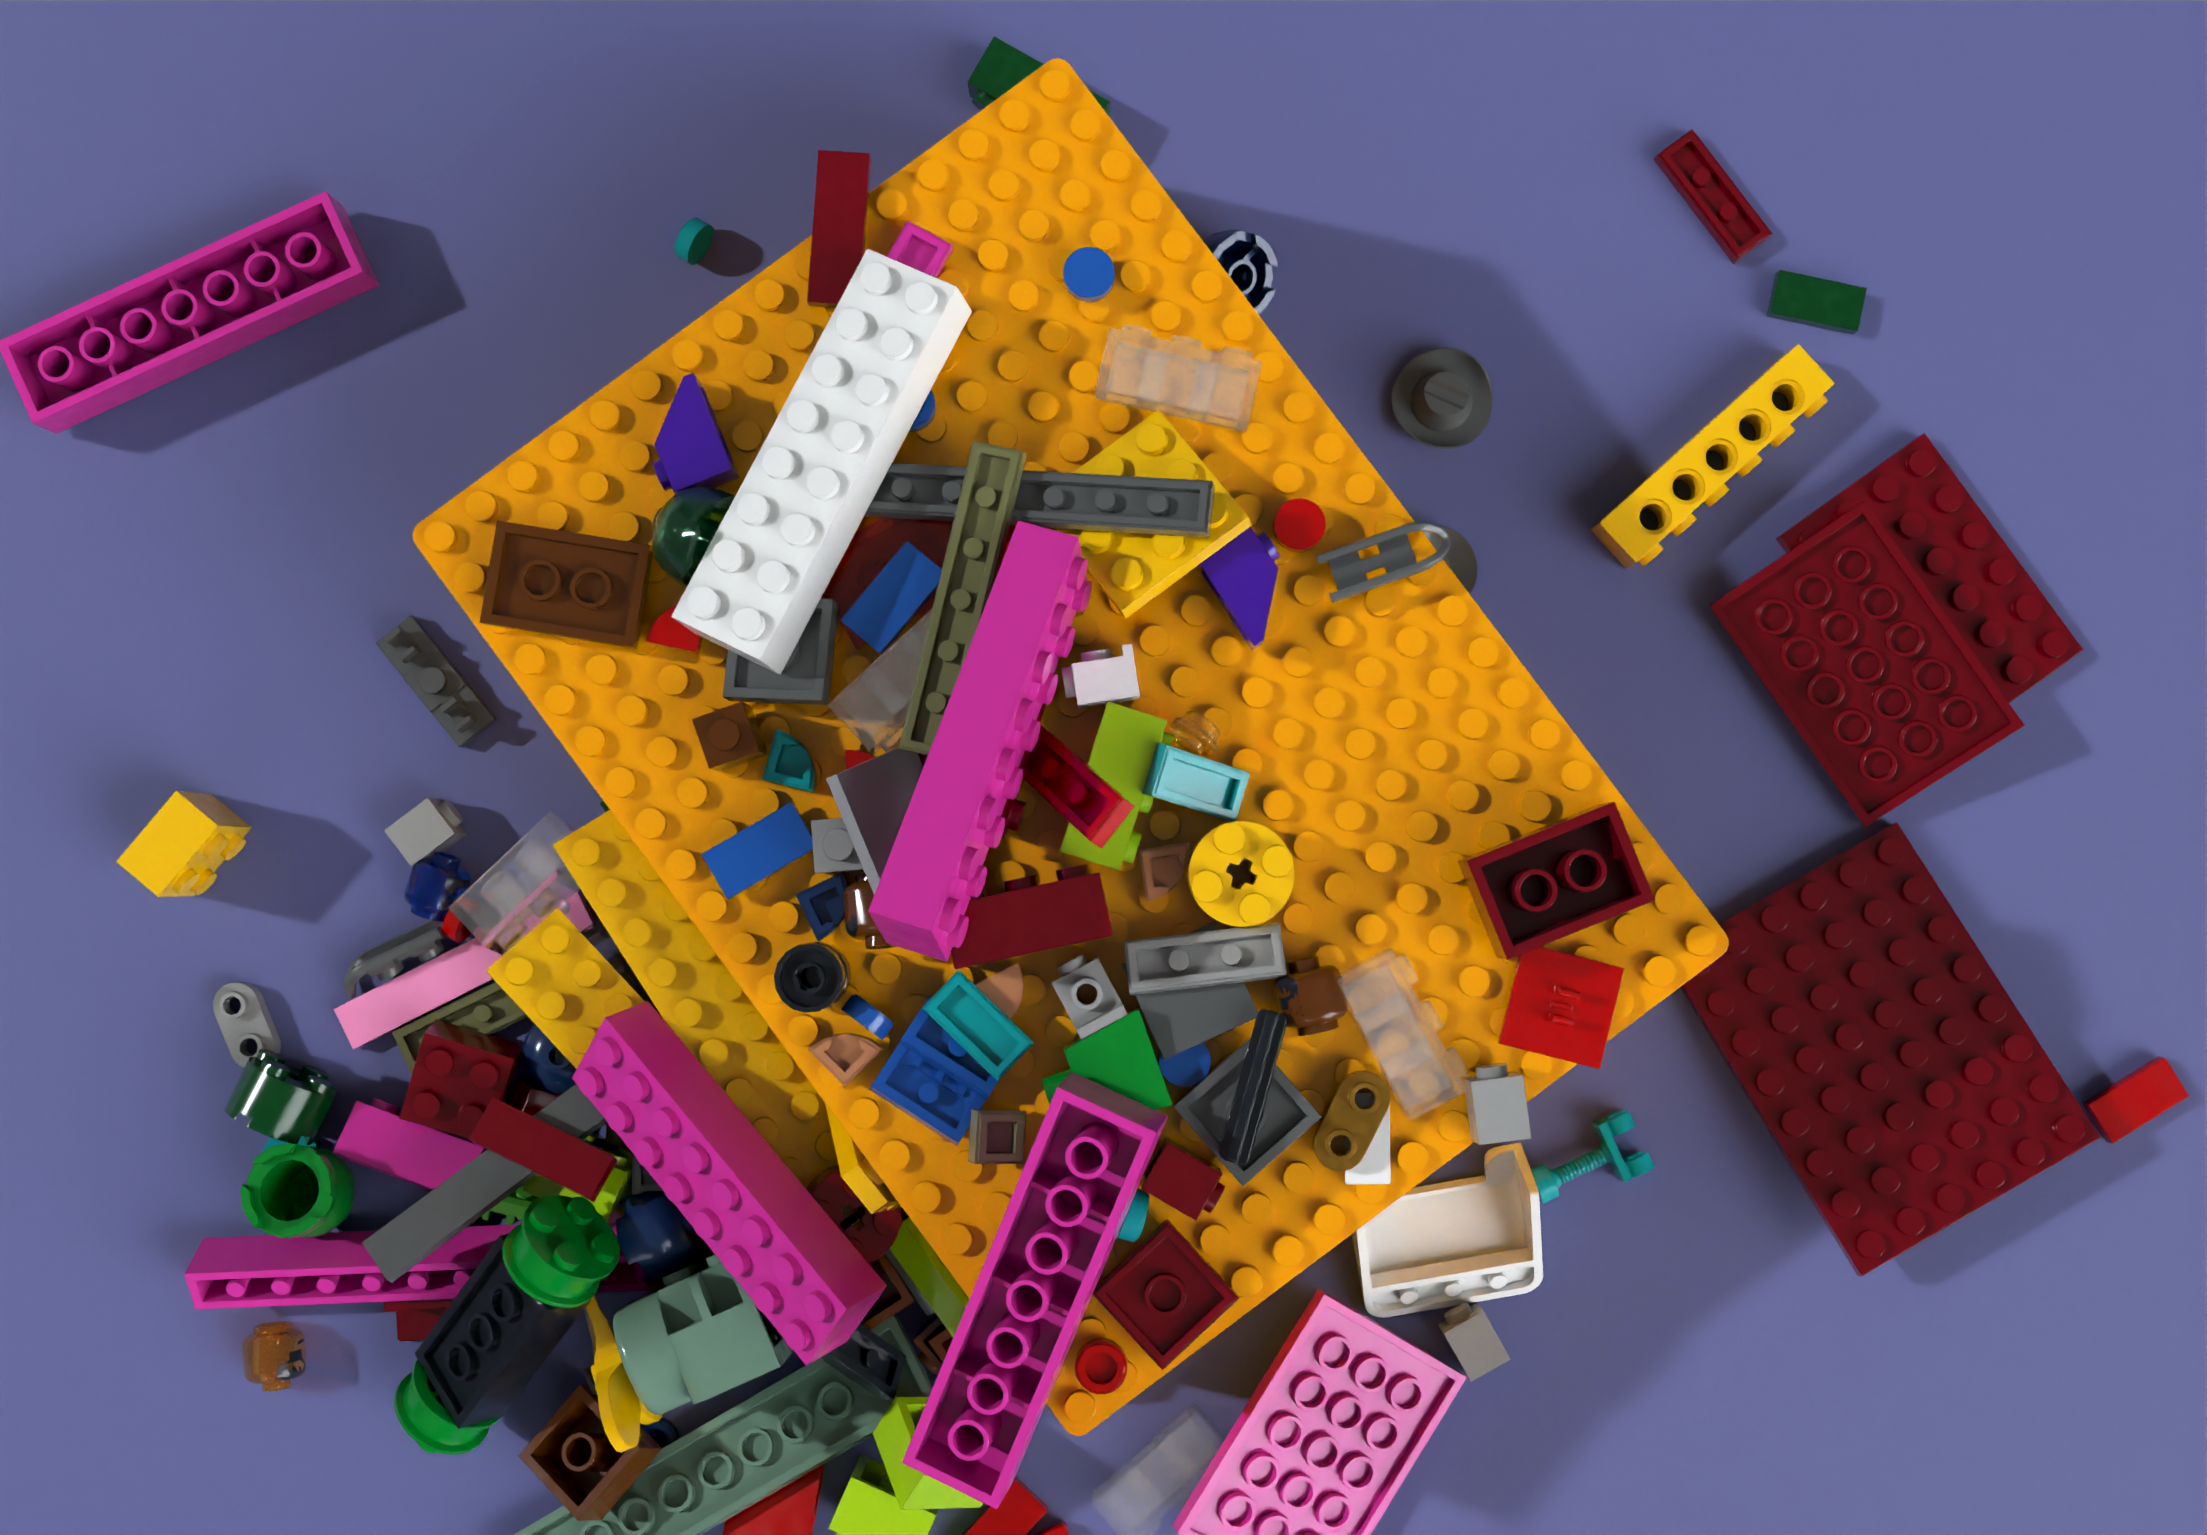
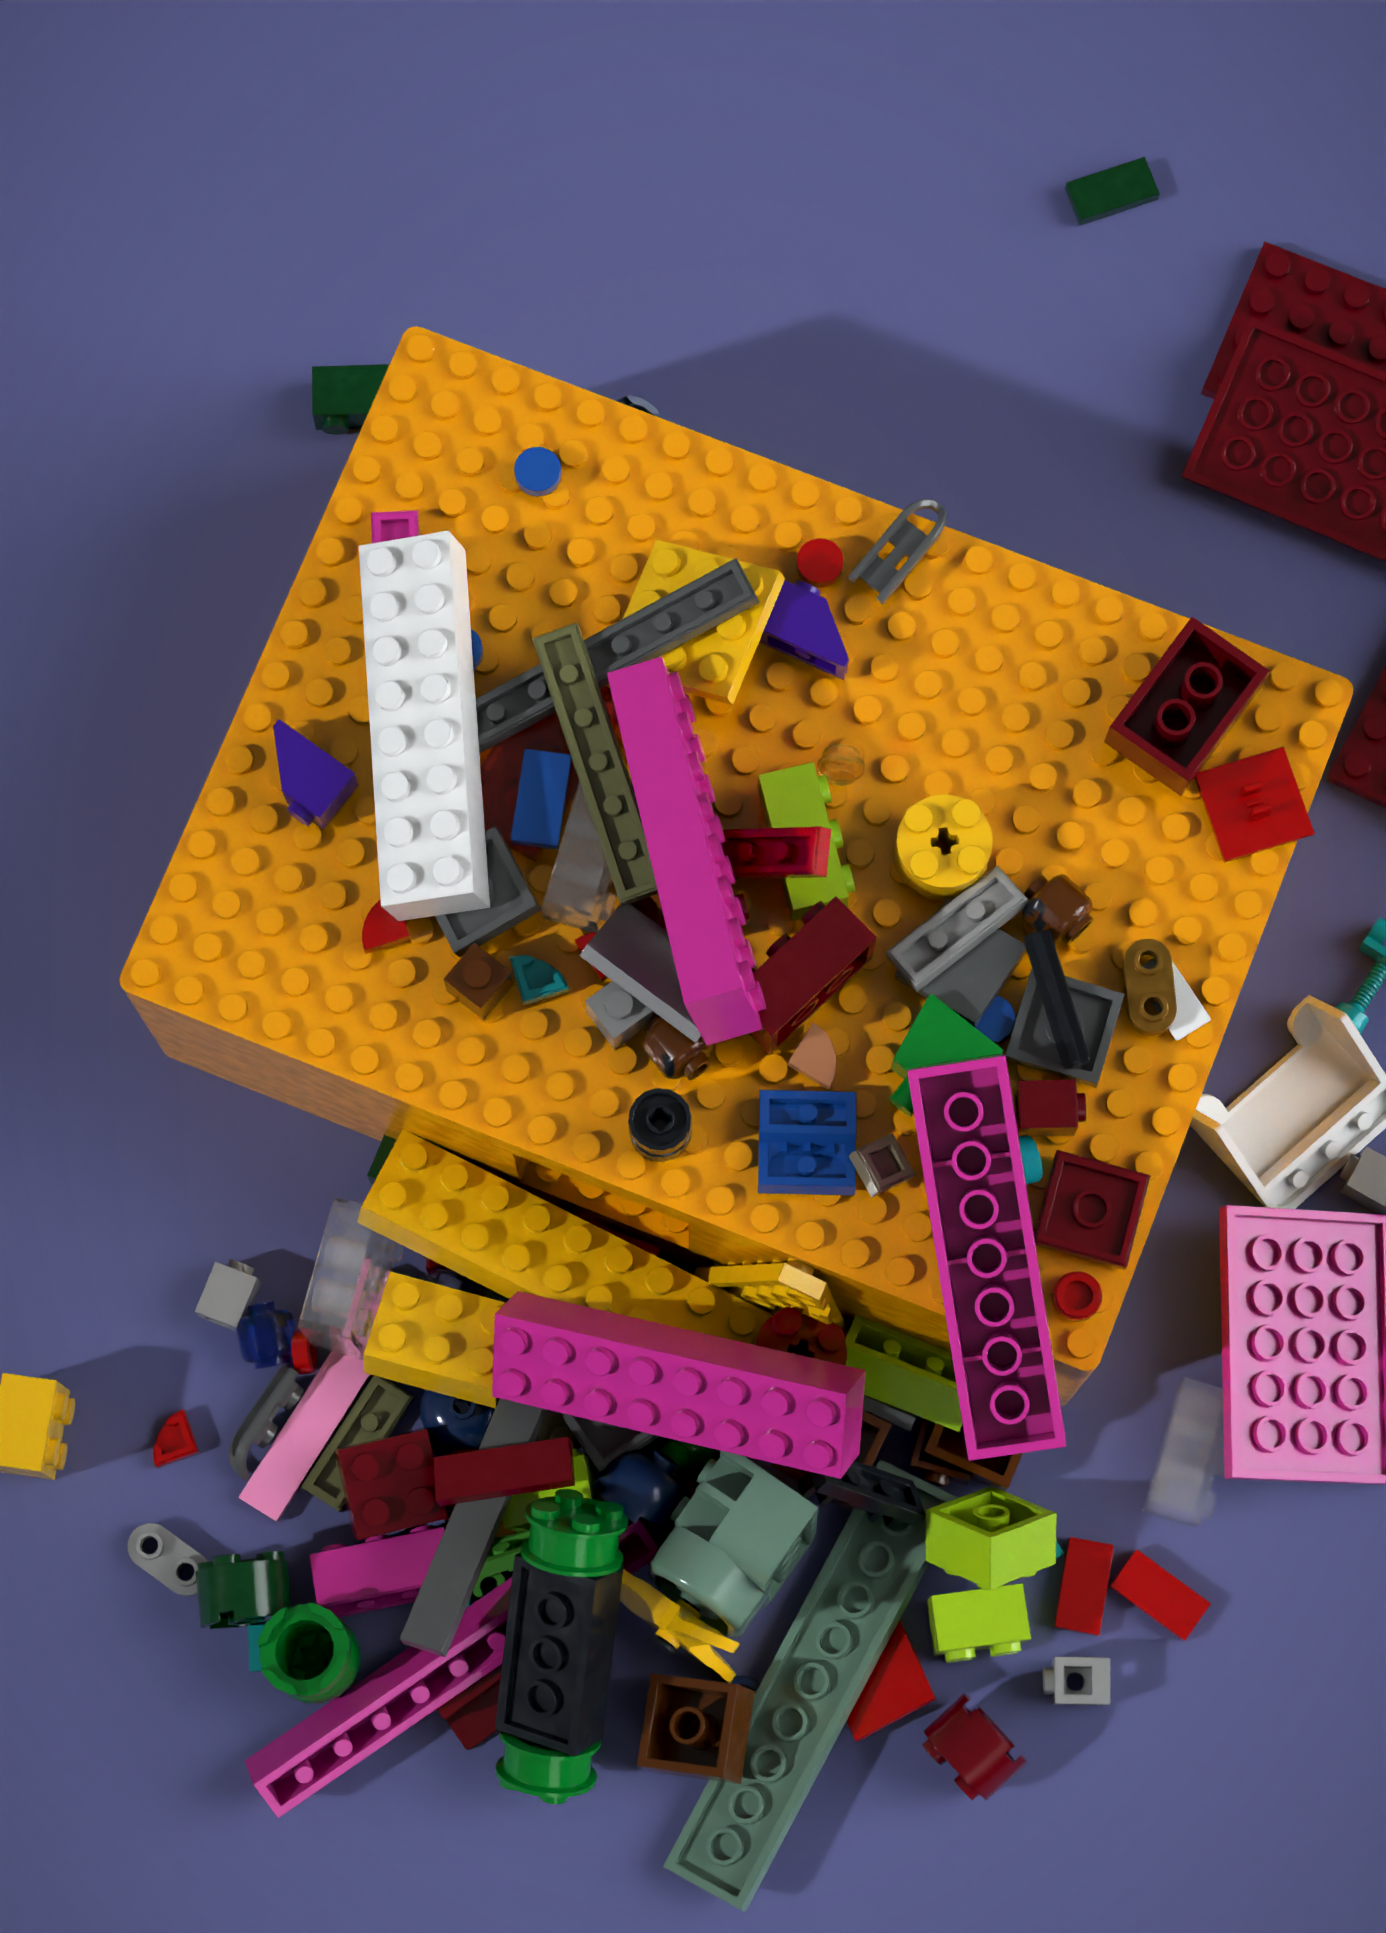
camera: 35 degrees left, 10 degrees down
(274, 1355) = (367, 1826): clear orange head -> none
(311, 926) = (174, 1441): none -> red tile
(436, 681) = (158, 1169): dark grey plate -> none
(566, 584) = (274, 944): reddish brown plate -> none
(686, 528) = (350, 840): clear green cylinder -> none
(693, 240) = (158, 676): teal tile -> none
(759, 850) = (555, 1059): blue tile -> none
(824, 905) = (632, 1069): dark blue tile -> none
(838, 224) = (319, 549): dark red tile -> none
(845, 1054) = (722, 1177): nougat tile -> none
(868, 1016) = (722, 1133): blue tile -> none
(978, 1025) = (813, 1085): teal tile -> none
(1091, 1016) = (888, 1028): light grey brick -> none
(1102, 678) = (741, 762): white brick -> none
(1163, 868) = (879, 883): nougat tile -> none
(1178, 377) = (657, 506): clear brick -> none
(1196, 782) = (864, 798): tile -> none
(1402, 1033) = (1145, 894): clear brick -> none
(1442, 398) = (859, 440): dark grey hat -> none
(1496, 1105) = (1252, 904): light grey brick -> none
(1712, 196) = (975, 157): dark red tile -> none
(1792, 375) = (1130, 258): yellow brick -> none

